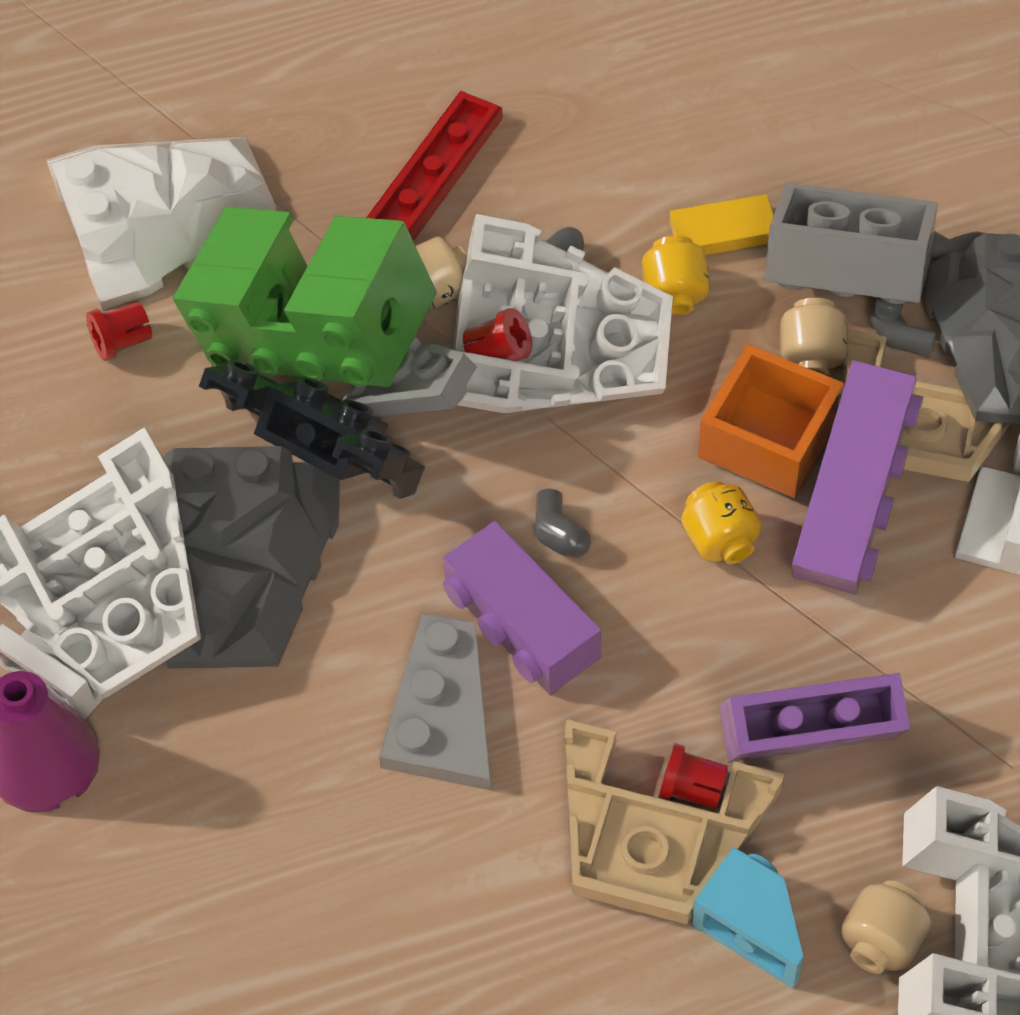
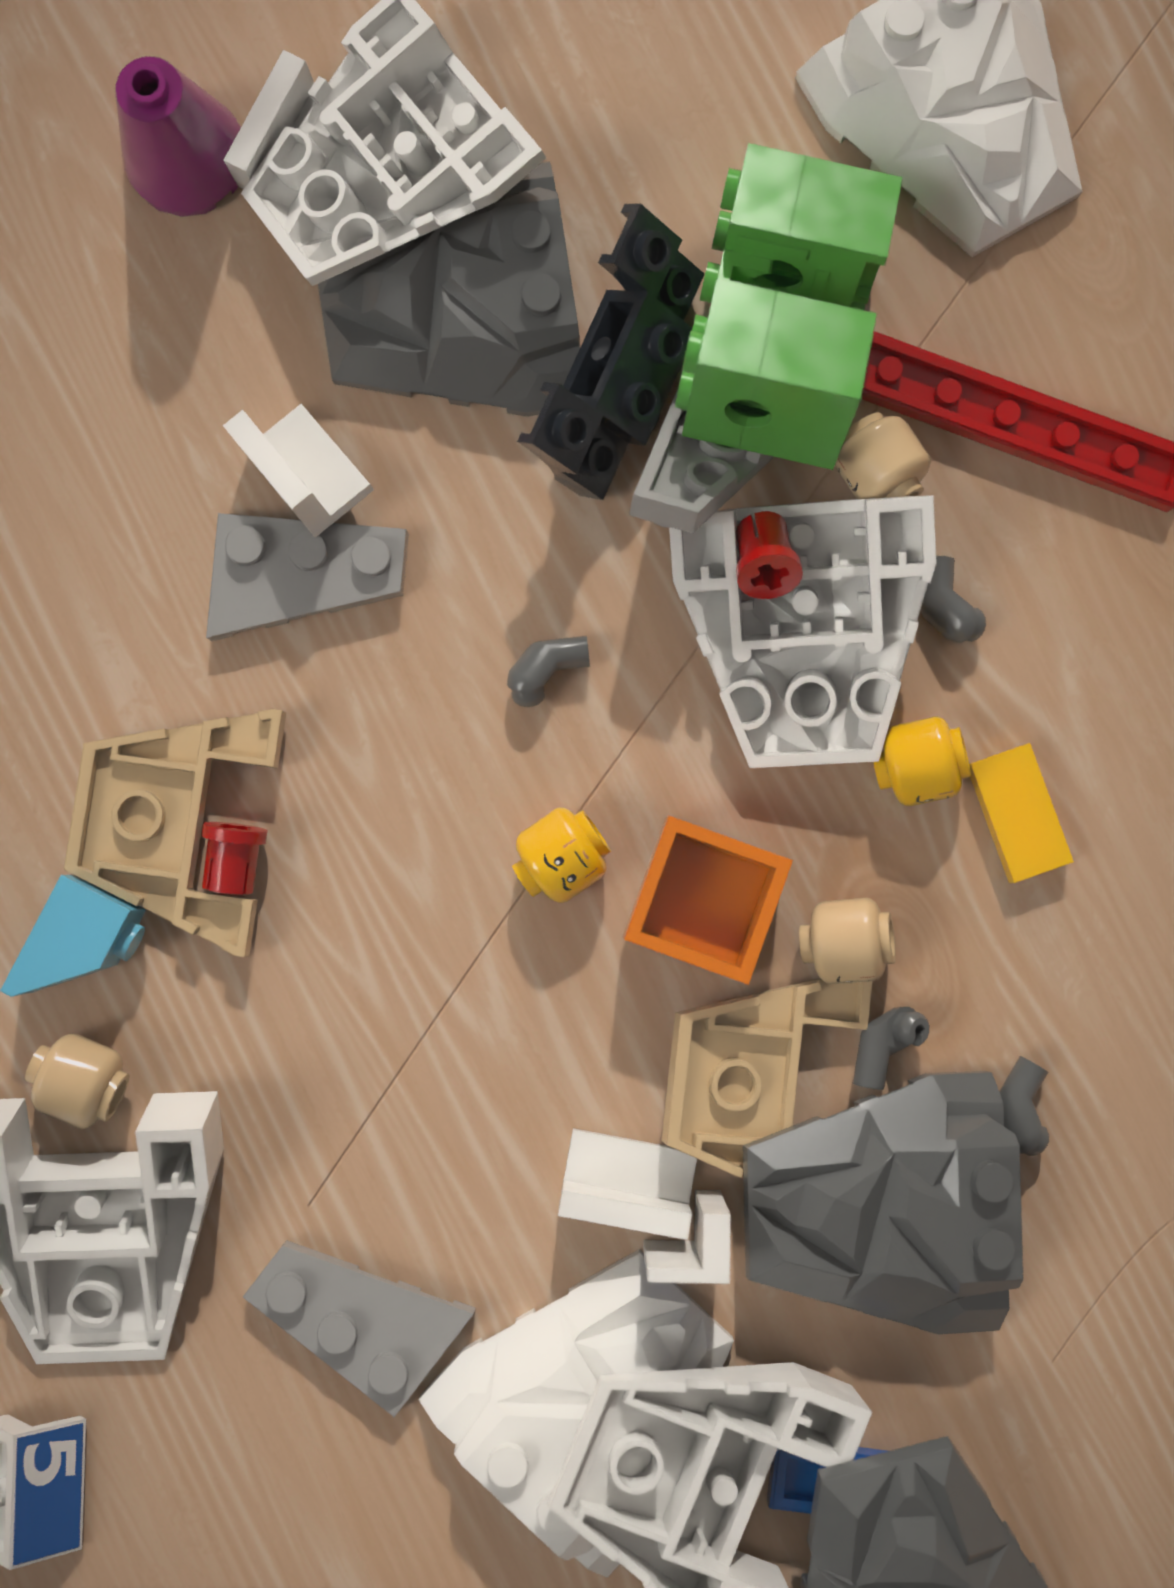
camera: 80 degrees right, 30 degrees up
(118, 328) = (752, 99): red bush -> none
(353, 682) = (302, 466): none -> white panel
(521, 608) = (421, 637): medium lavender brick -> none
(814, 717) = (307, 985): medium lavender brick -> none
(851, 243) = (985, 977): light grey brick -> none
(855, 478) = (626, 1009): medium lavender brick -> none

